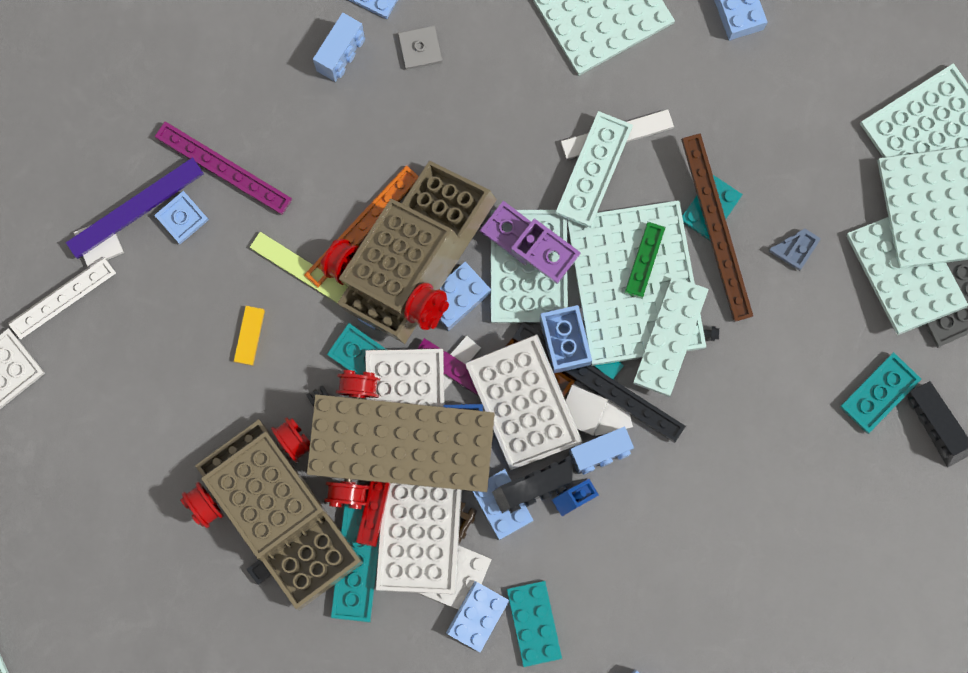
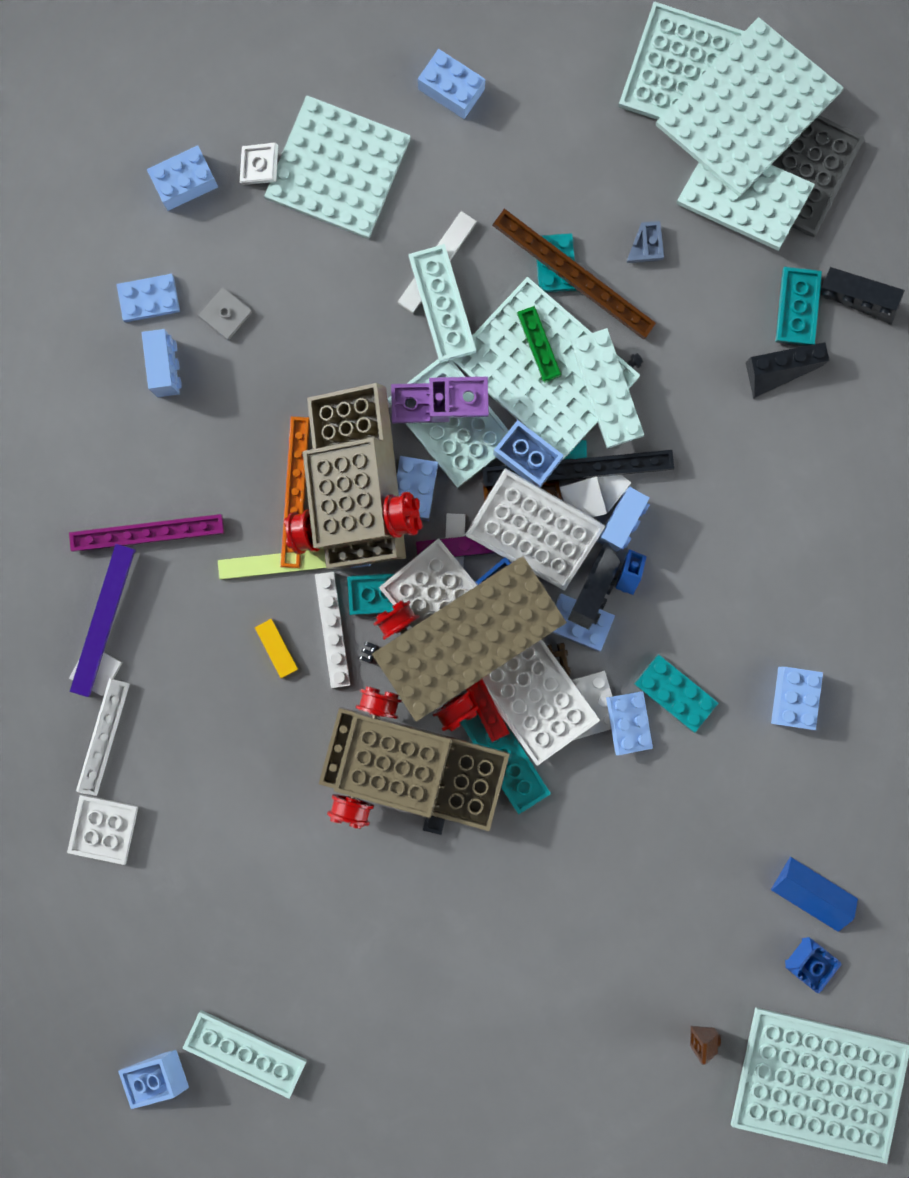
camera: 40 degrees left, 5 degrees up
(181, 217) = (145, 598): light blue plate -> none
(304, 356) = (332, 629): none -> white plate
(828, 431) = (781, 367): none -> black wedge

